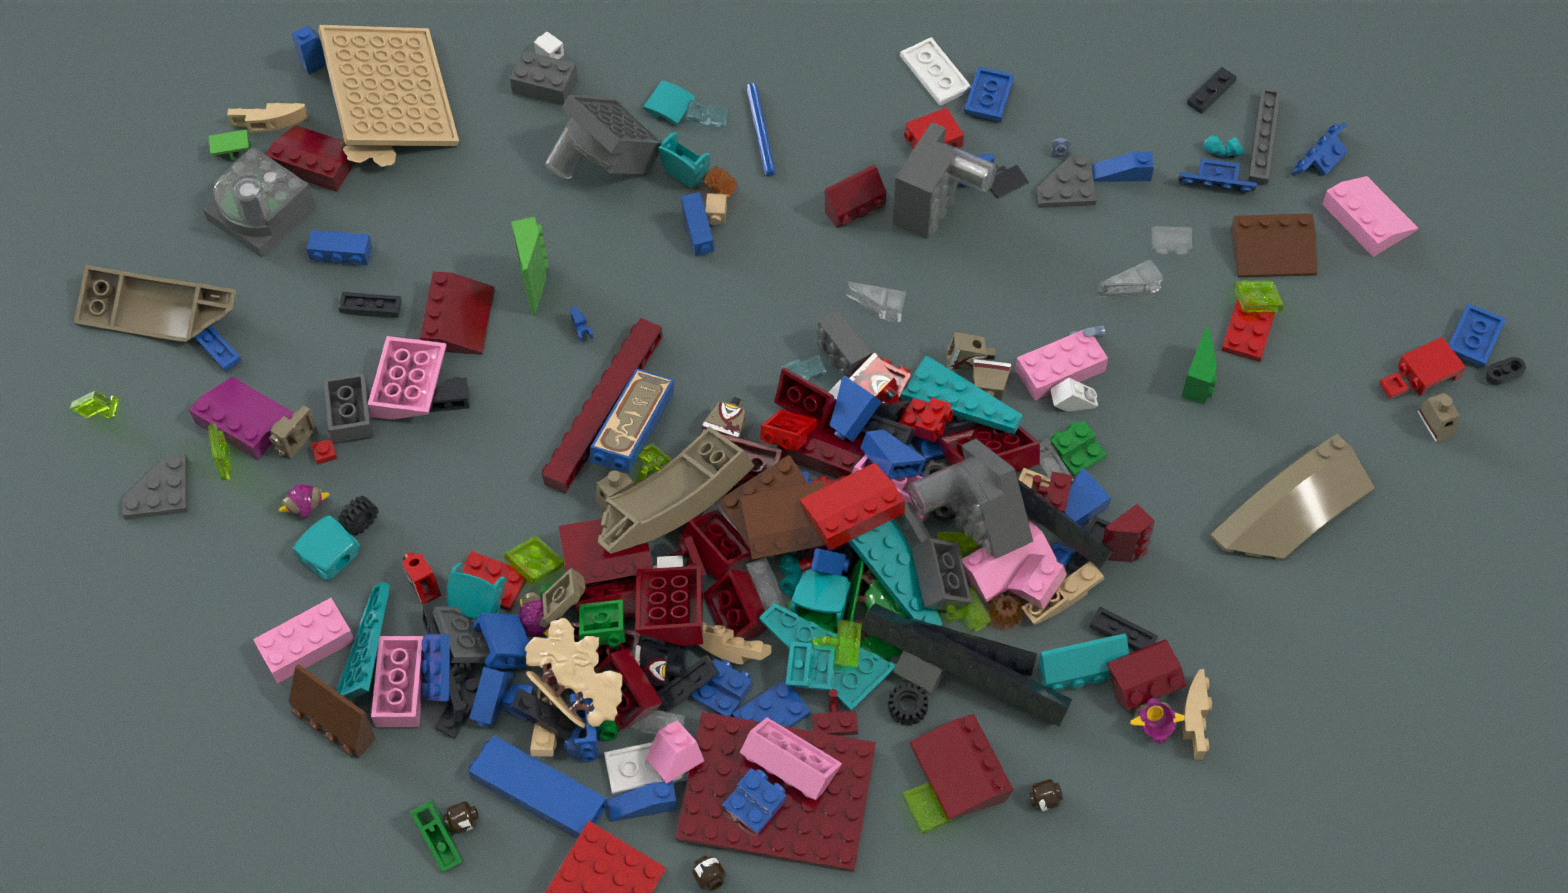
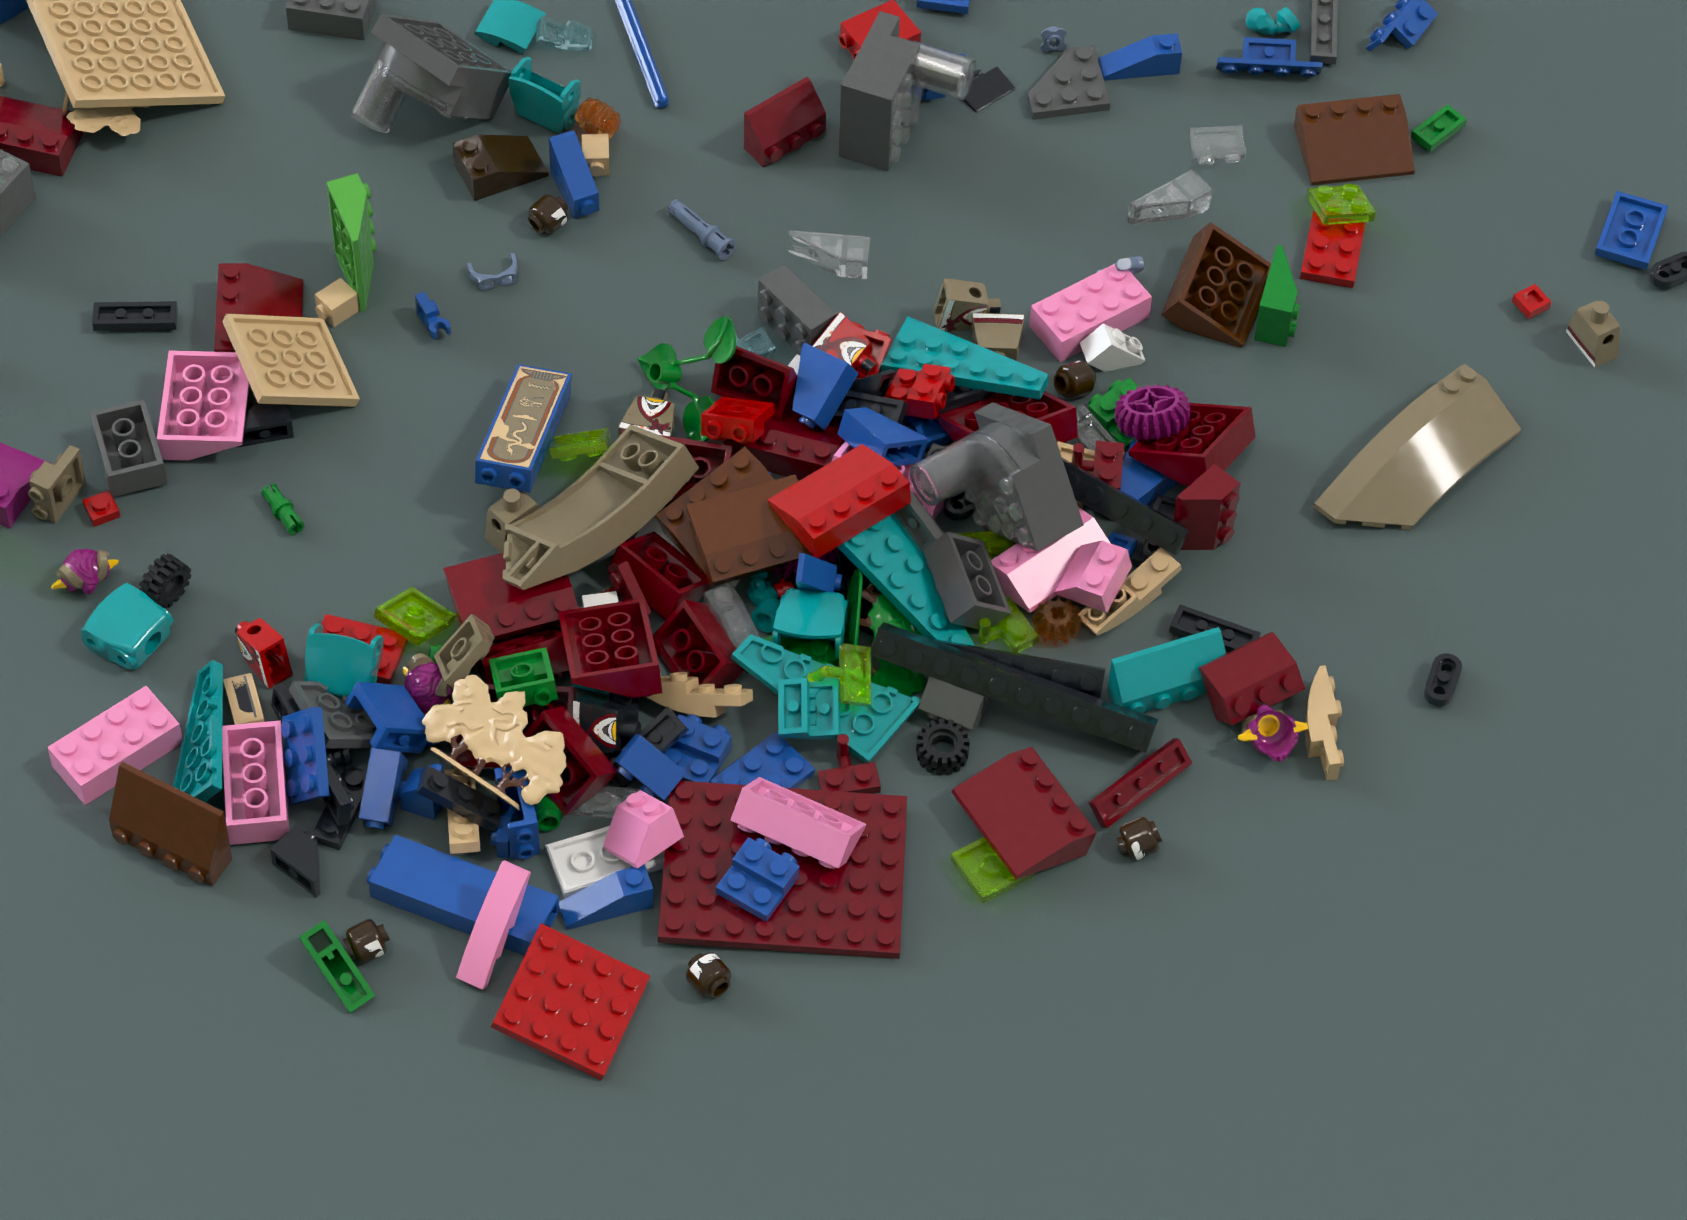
camera: 10 degrees left, 5 degrees down
(339, 247) = (79, 246): blue brick -> none
(402, 614) = (243, 699): none -> tan slope
(423, 745) = (298, 858): none -> black slope
(452, 464) = (282, 509): none -> green pin
(472, 351) = (290, 360): none -> tan plate
(514, 307) = (336, 302): none -> tan brick
(553, 817) = (493, 924): none -> bright pink slope
(576, 443) = (459, 447): dark red brick -> none
(622, 298) = (480, 279): none -> sand blue cap
(645, 209) = (497, 163): none -> dark brown slope
(654, 459) = (557, 477): clear neon green plate -> none
(669, 435) = (590, 442): none -> clear neon green plate
(675, 252) = (548, 214): none -> dark brown head
(686, 701) = (649, 767): none -> blue brick
(740, 386) = (664, 371): none -> green plant
(790, 278) = (709, 234): none -> sand blue pin
(1043, 418) = (1074, 380): none -> dark brown head
(1052, 749) = (1140, 783): none -> dark red plate
(1097, 452) = (1152, 412): none -> magenta gear
(1126, 476) = (1211, 437): none -> dark red slope
(1158, 354) = (1217, 287): none -> reddish brown slope
(1291, 688) = (1442, 681): none -> black plate
(1338, 241) = (1438, 128): none -> green plate
(1368, 214) = (1474, 90): bright pink slope -> none
(1430, 365) = (1576, 271): red panel -> none

